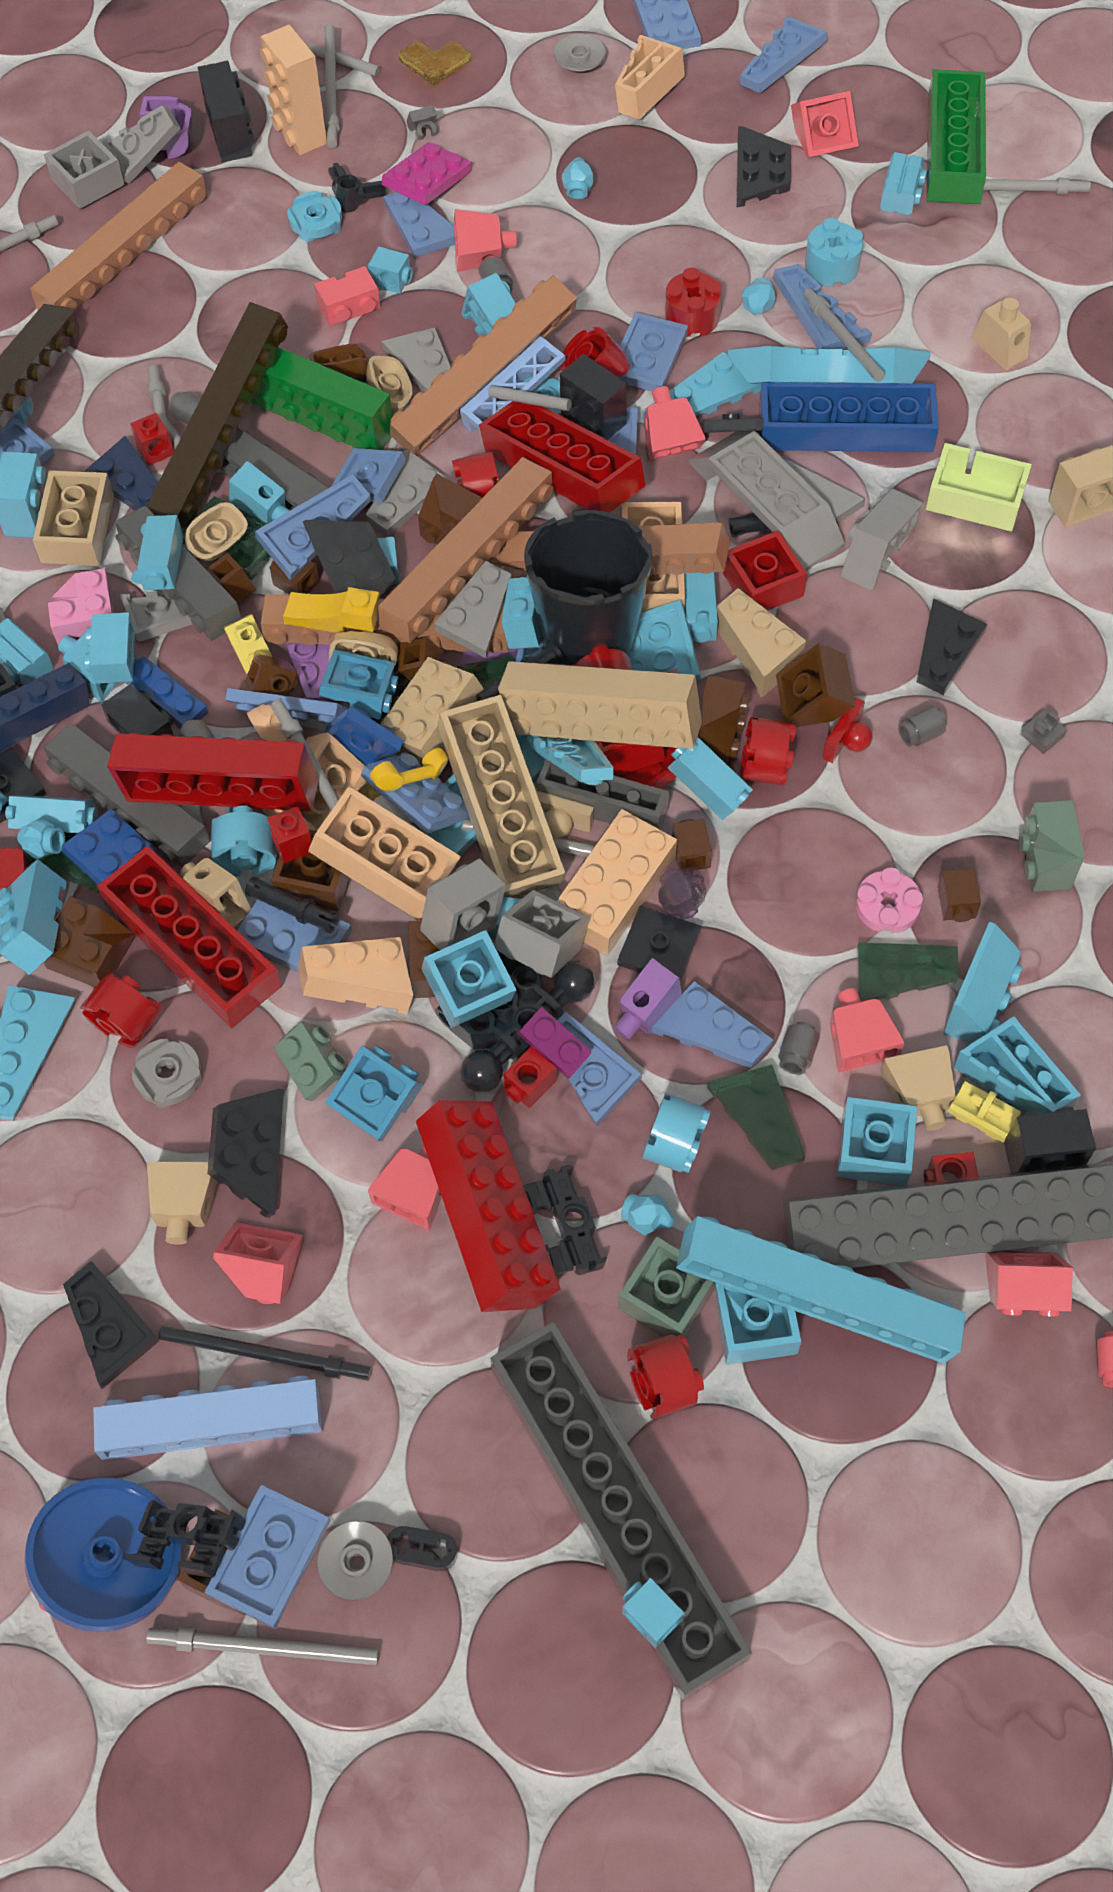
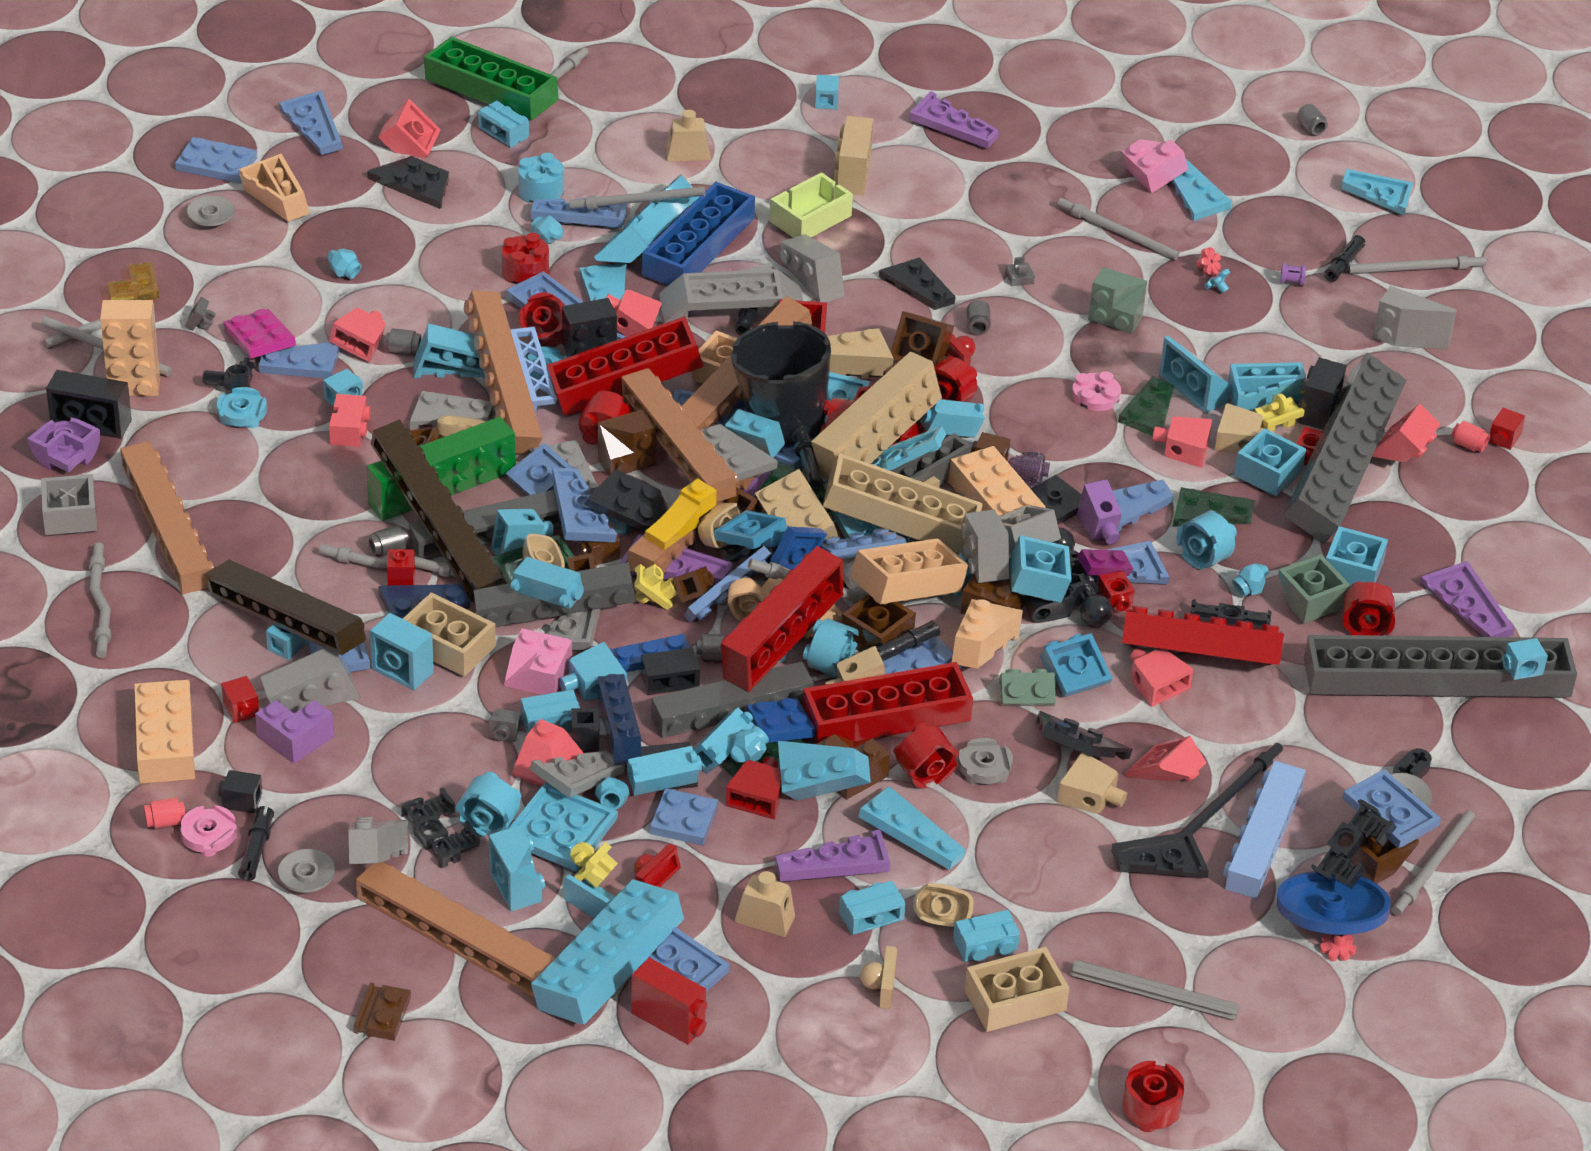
camera: 65 degrees left, 20 degrees down
(111, 647) = (609, 644): medium azure brick -> none
(142, 142) = (80, 450): light grey wing -> none
(290, 834) = (861, 606): red brick -> none
(388, 778) = (855, 532): yellow bar -> none
(529, 398) = (560, 357): light grey bar -> none
(731, 423) = (660, 285): black plate -> none
(788, 1489) = (1469, 599): none -> medium lavender wing
(798, 1048) = (1178, 470): flat silver brick -> none
(821, 1289) = (1361, 514): medium azure brick -> none
(959, 895) = (1117, 358): reddish brown brick -> none

